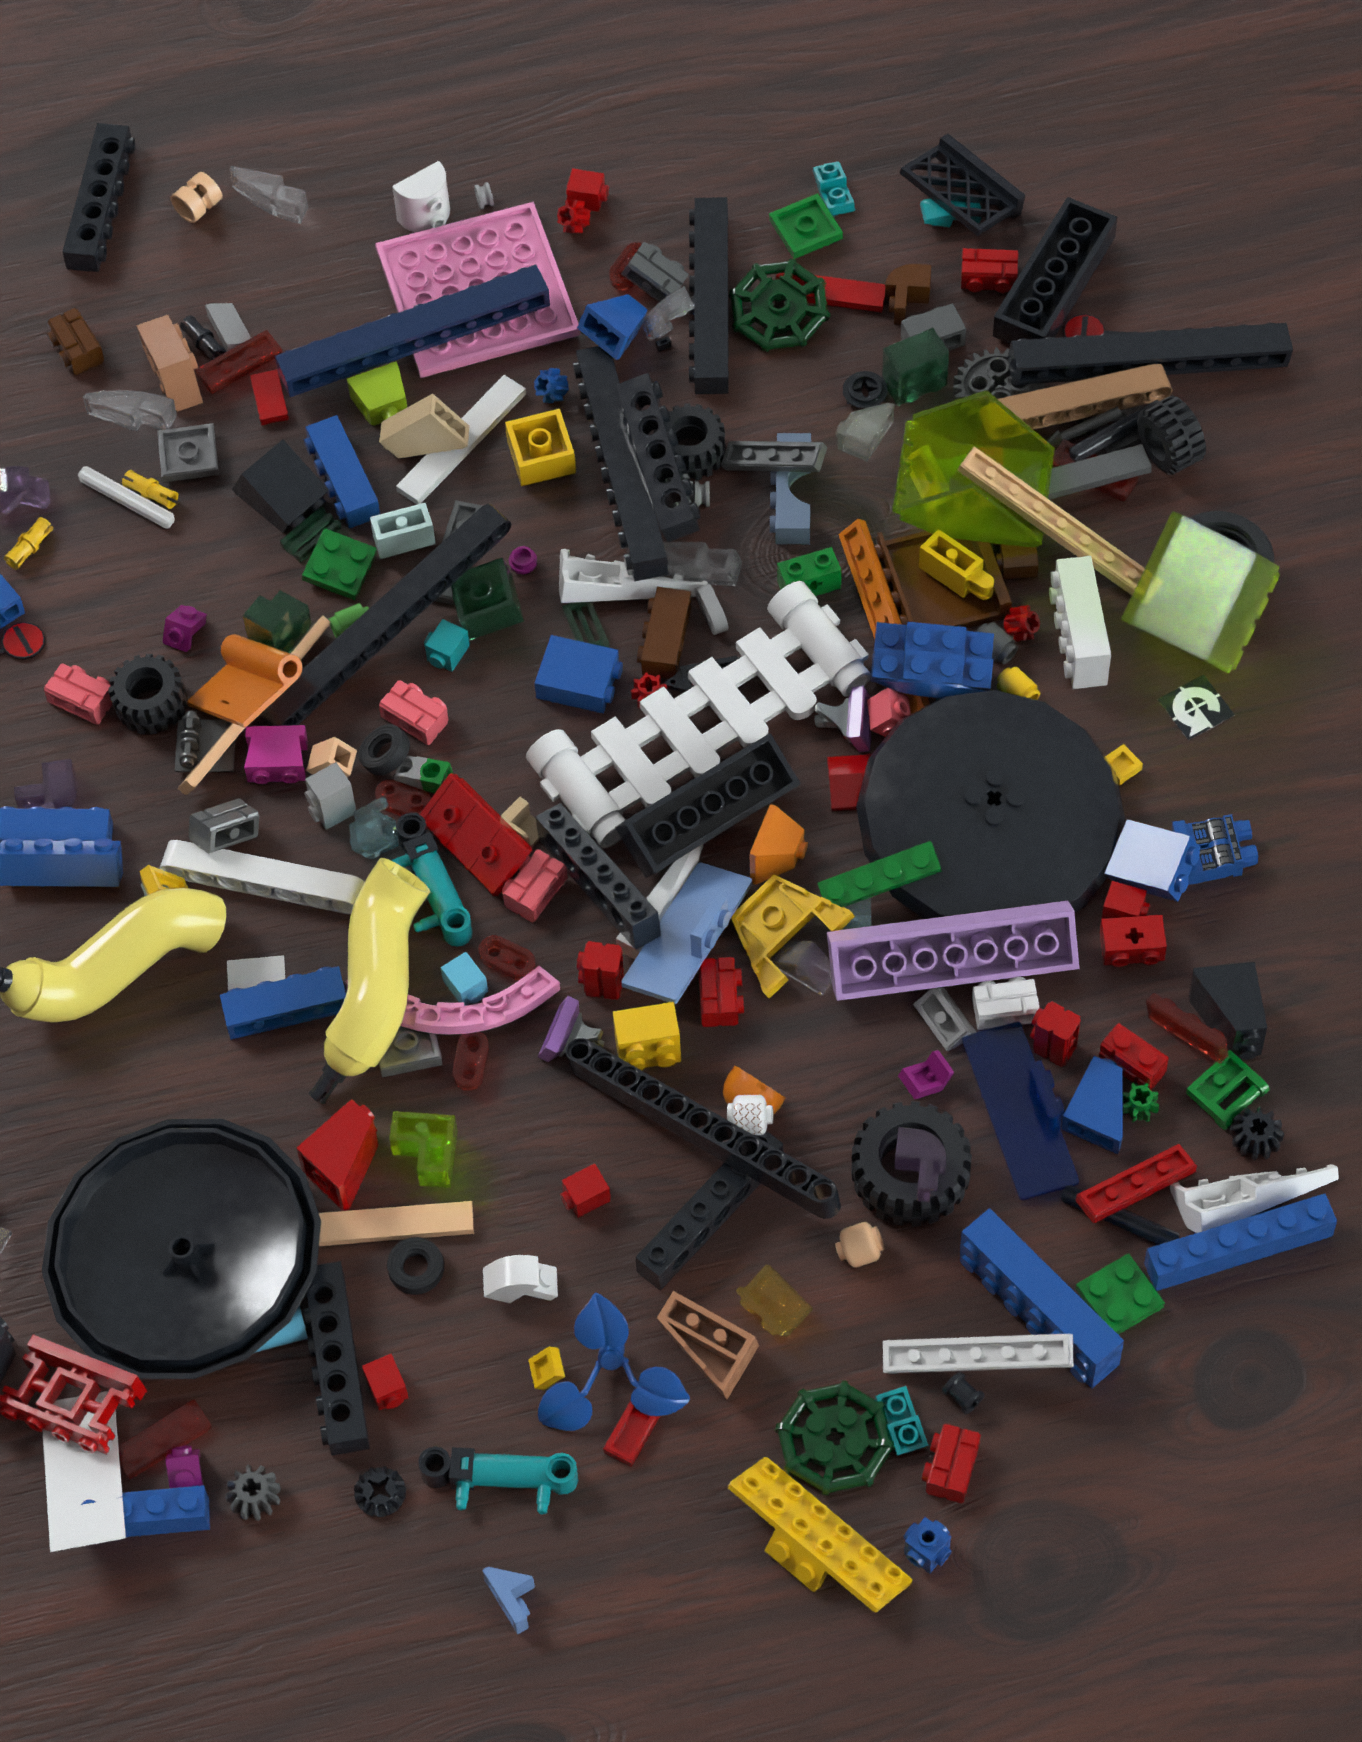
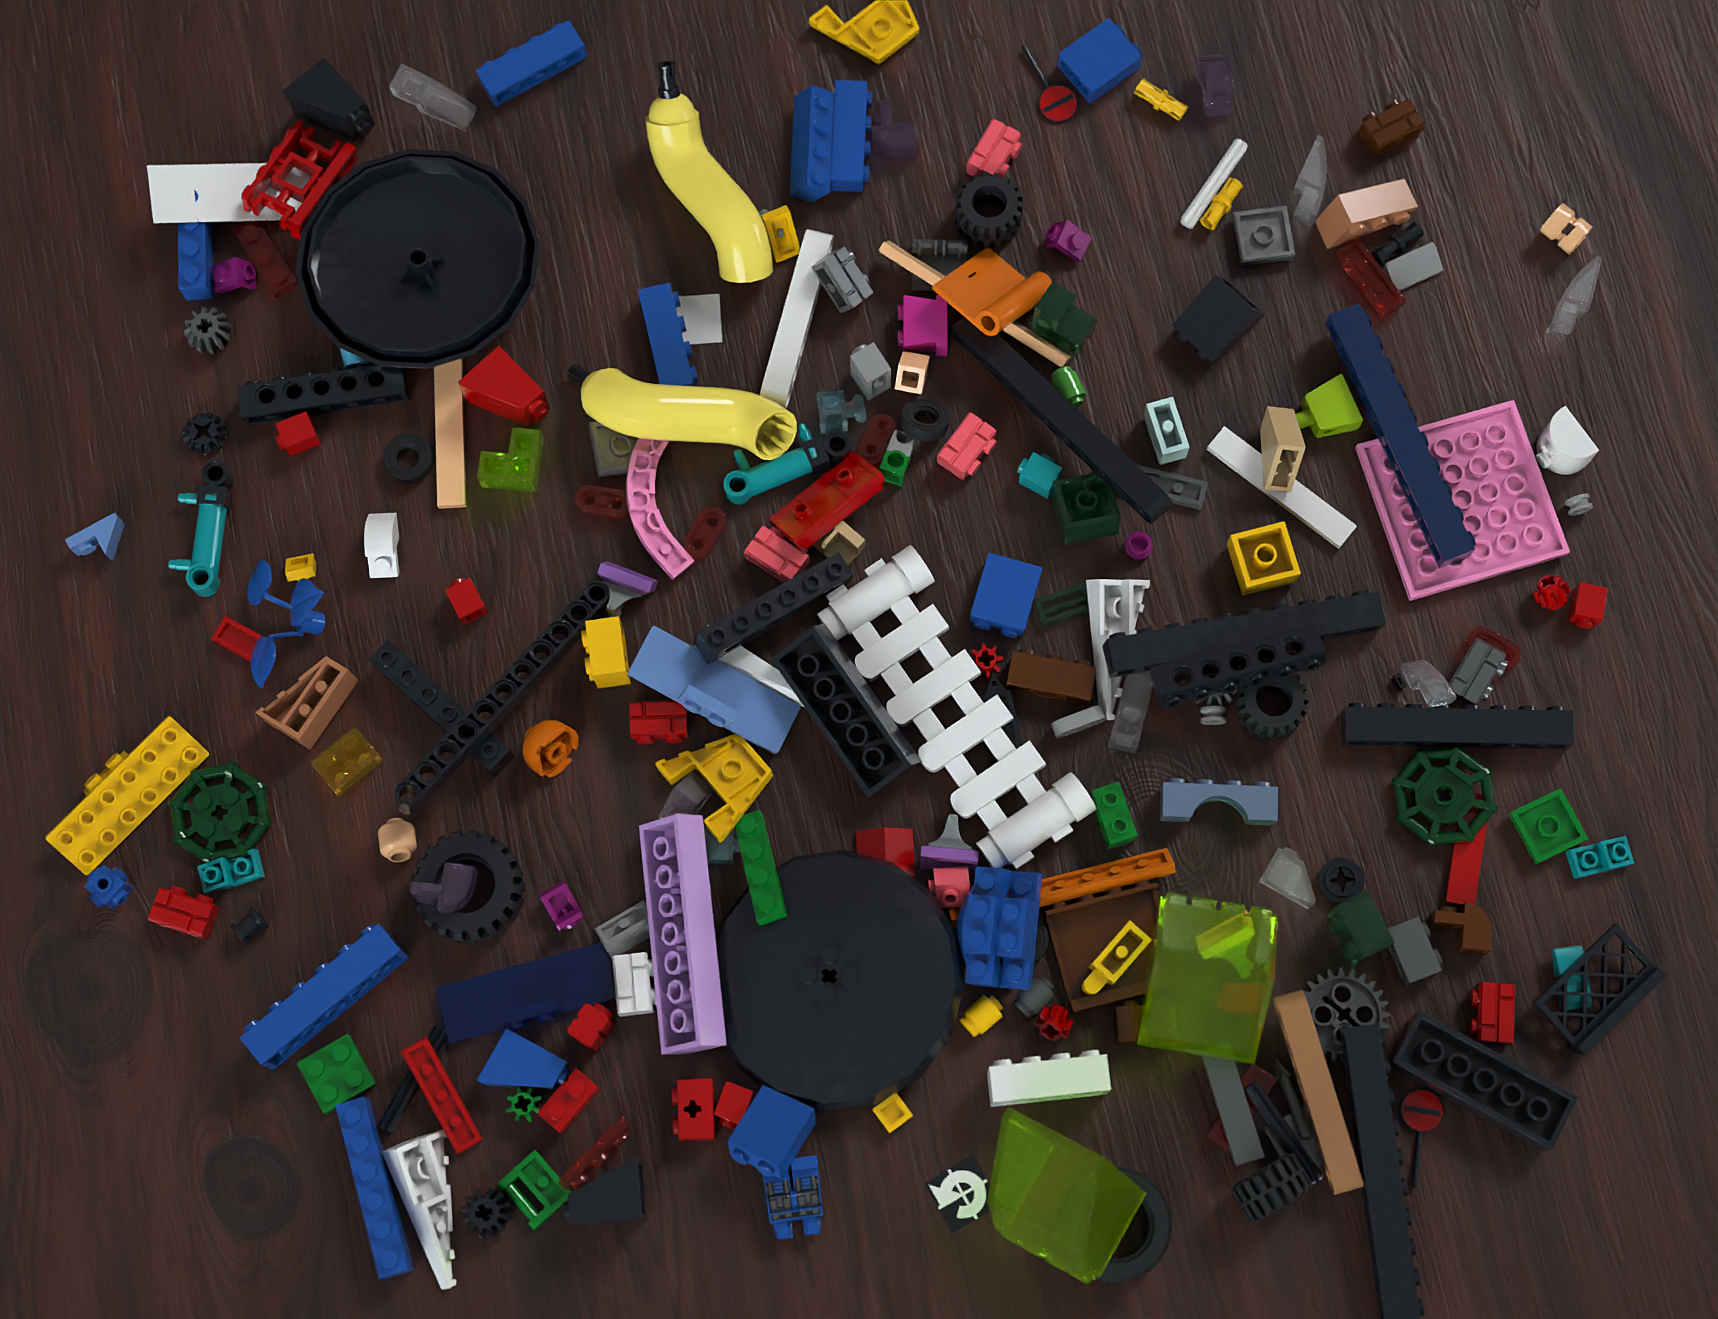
camera: 90 degrees right, 15 degrees up
(98, 197) = (1579, 132): black brick -> none
(269, 397) = (1318, 308): red tile -> none
(307, 531) = (1185, 349): clear green tile -> none
(339, 564) = (1134, 375): green plate -> none
(342, 471) = (1239, 375): blue brick -> none
(464, 979) = (681, 495): medium azure brick -> none
(551, 385) = (1340, 570): blue gear -> none
(601, 970) = (678, 612): red brick -> none
(613, 323) = (1409, 628): blue slope -> none
(750, 1113) = (510, 738): white head -> none
(774, 456) = (1246, 782): dark grey tile -> none
(776, 846) = (806, 774): orange slope -> none
(978, 1353) = (272, 937): white tile -> none
(1051, 519) = (1160, 1059): light nougat tile -> none

